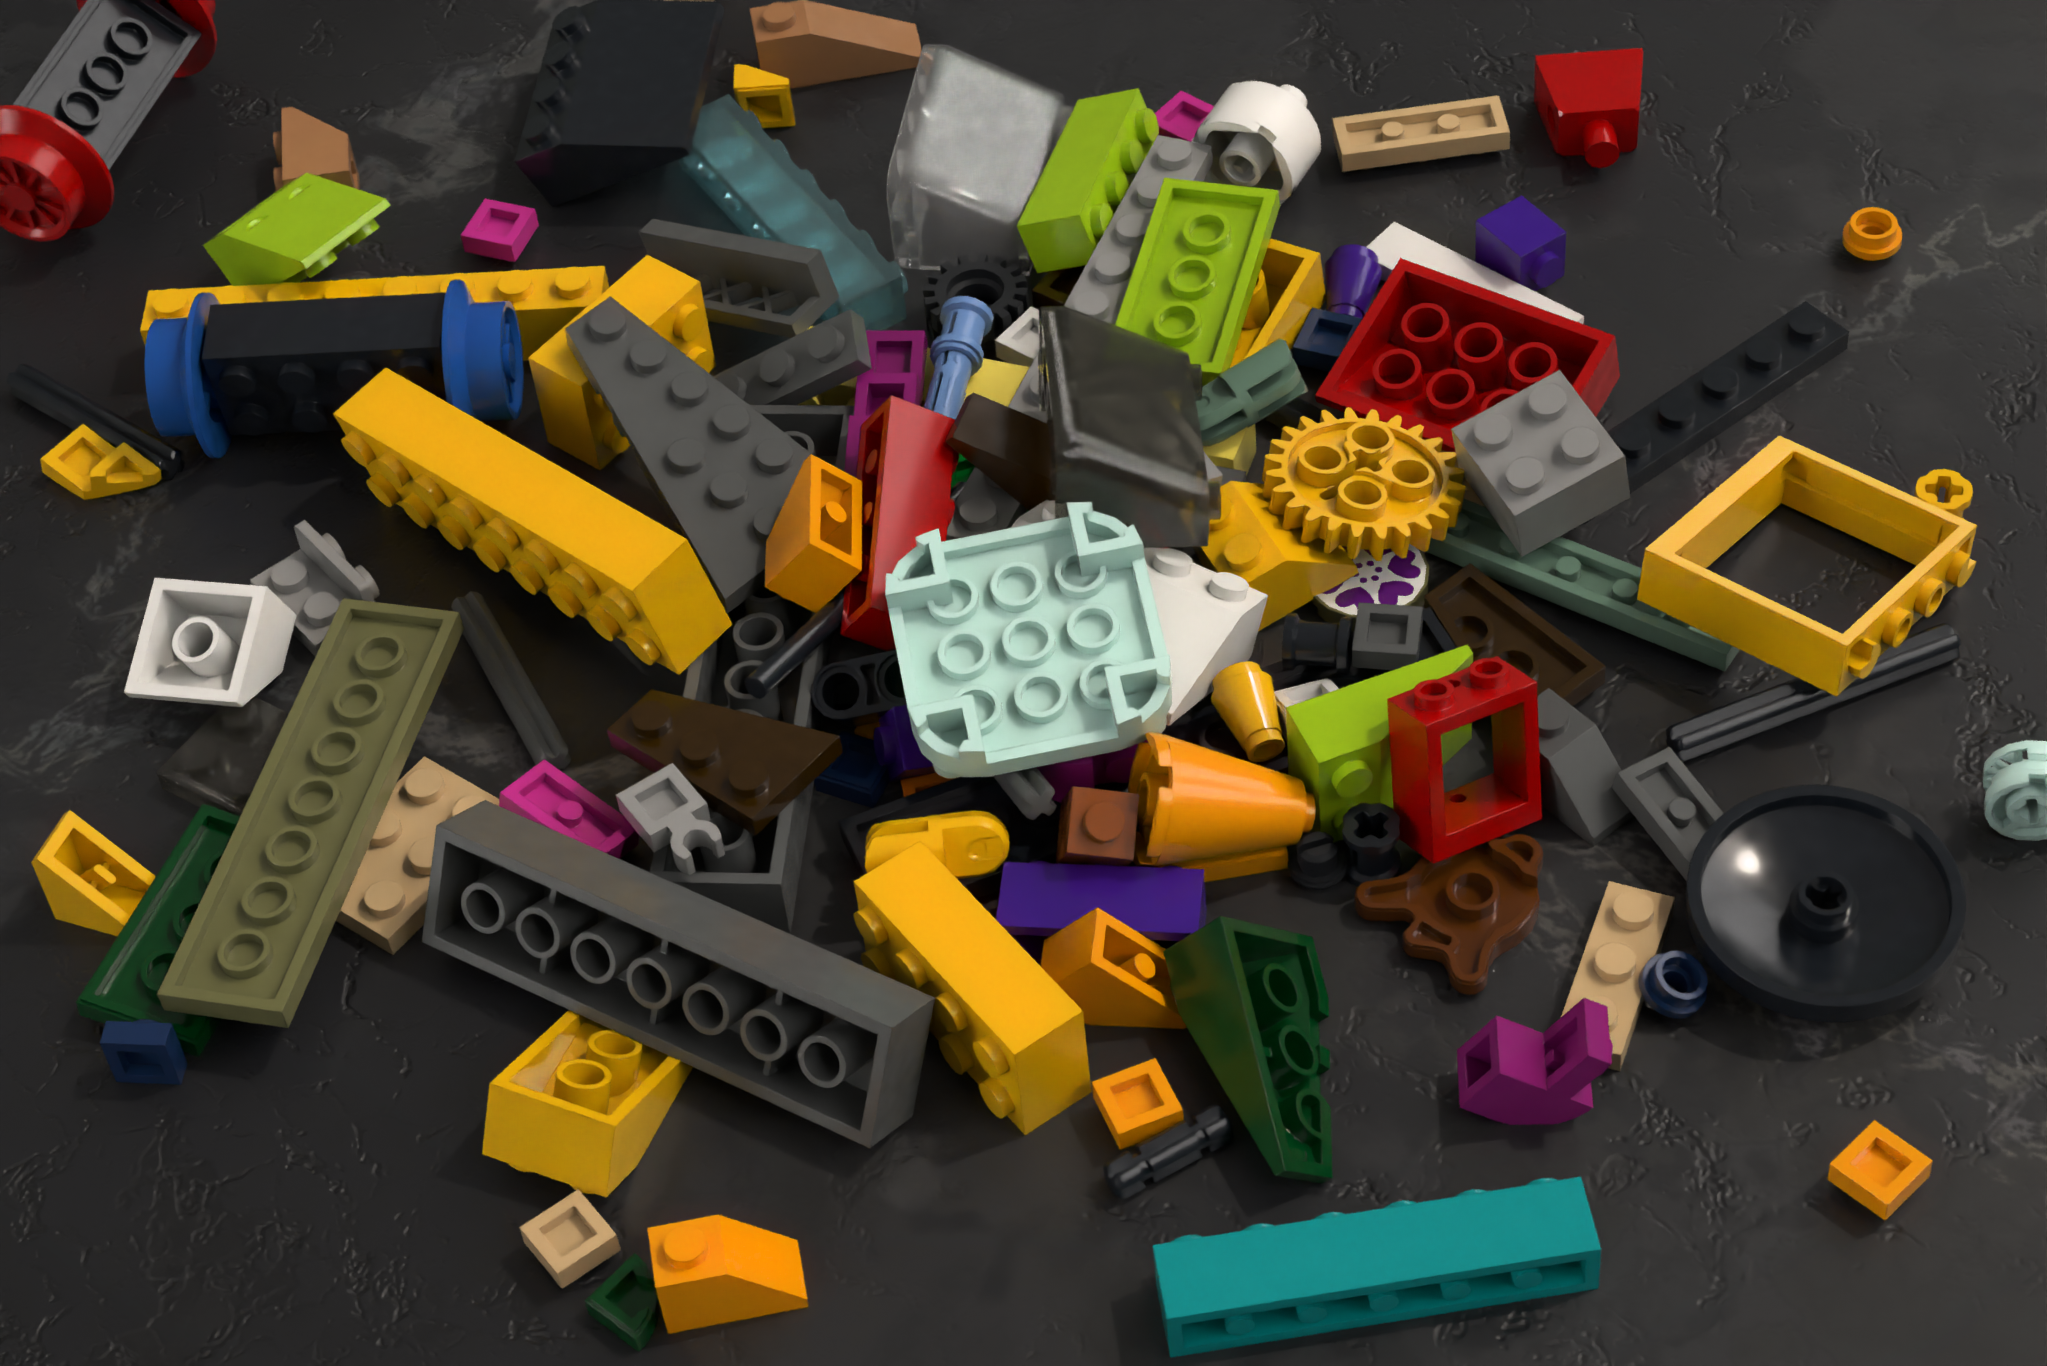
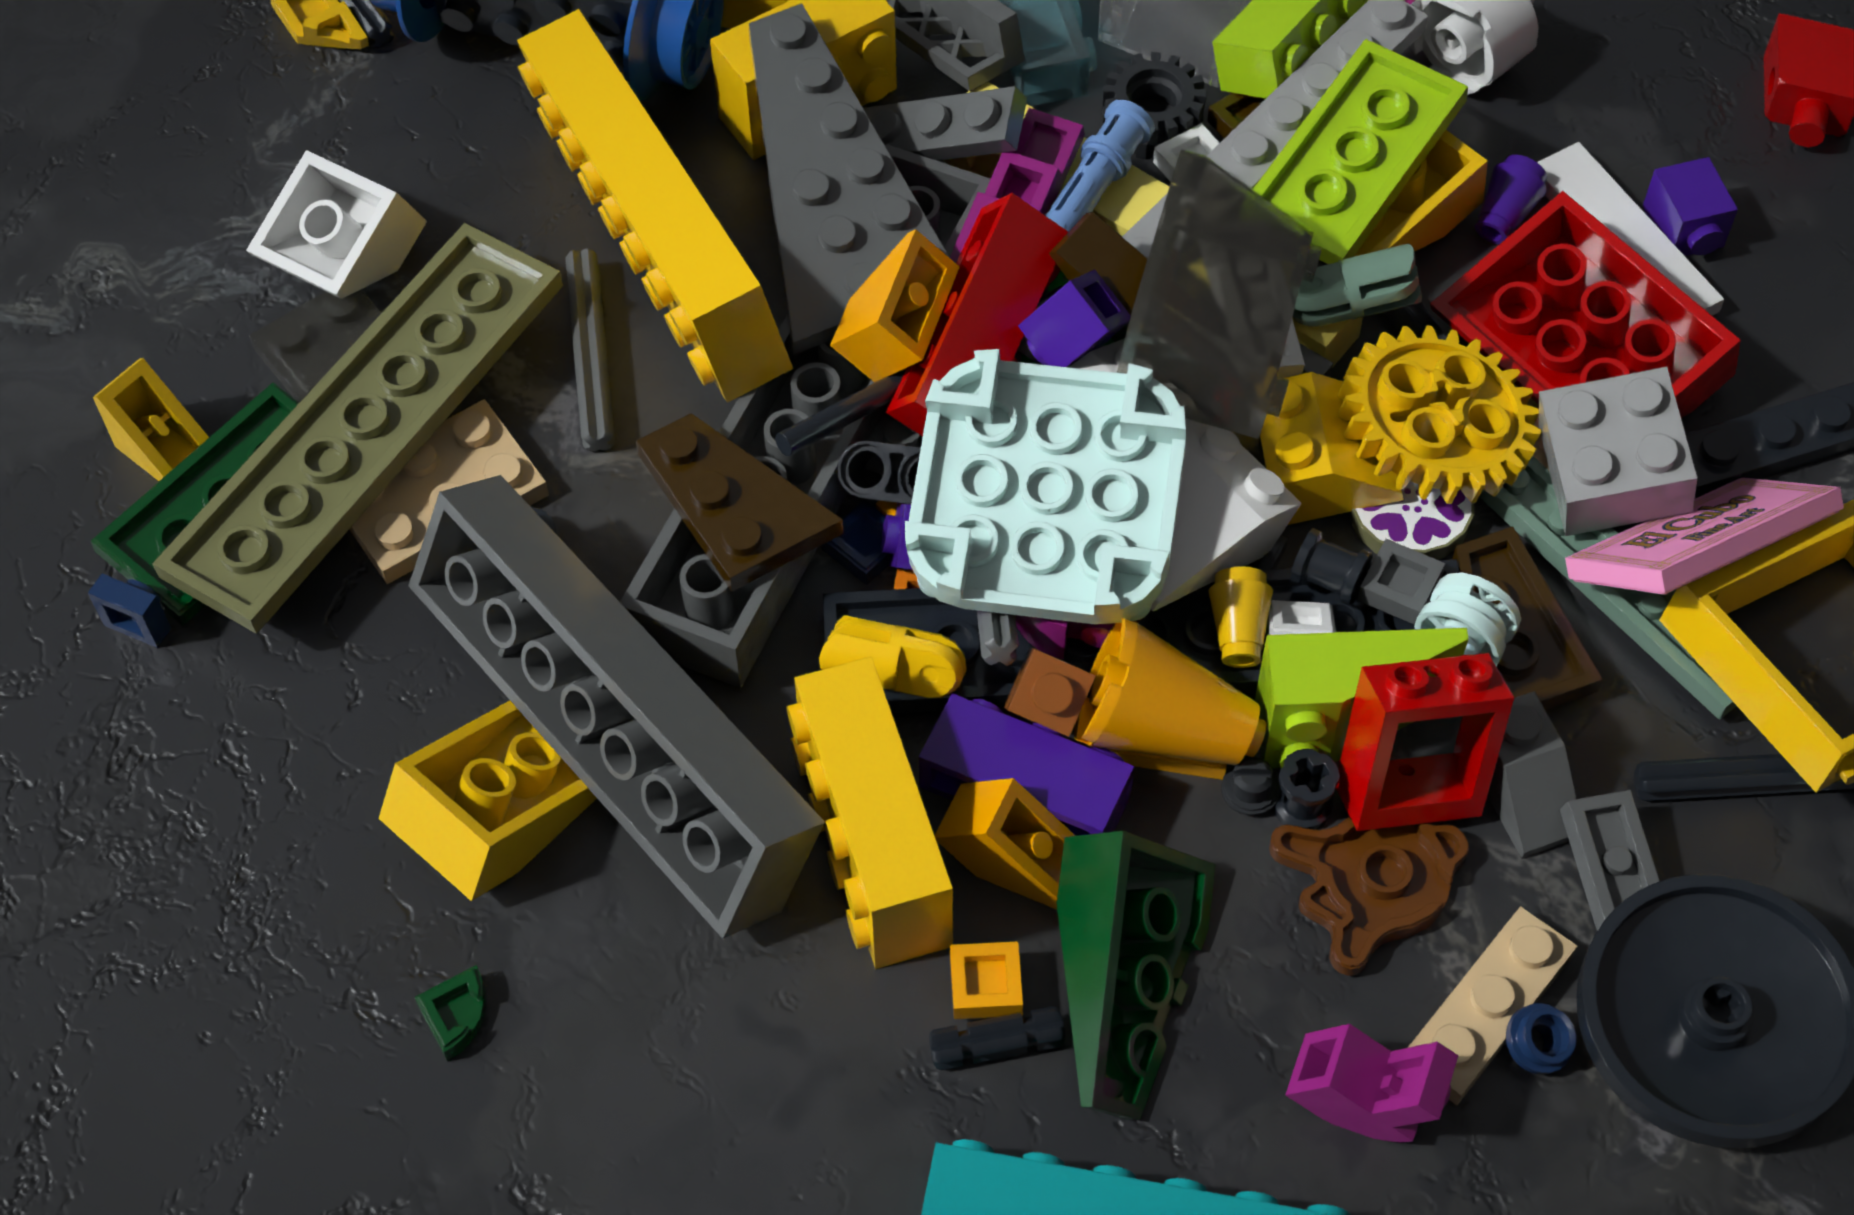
camera: 15 degrees right, 10 degrees up
(315, 583) = (455, 194): light grey bracket -> none
(567, 807) = (585, 506): dark pink plate -> none
(570, 1238) = (424, 930): tan plate -> none
(671, 812) = (658, 548): light grey plate -> none
(723, 1272) = (545, 1016): light orange slope -> none
(993, 492) = (1074, 321): none -> dark purple brick
(1323, 338) = (1464, 243): dark blue plate -> none
(1420, 133) = (1640, 57): tan plate -> none
(1446, 631) = (1458, 606): none -> light aqua wheel
(1651, 512) = (1719, 531): none -> bright pink tile

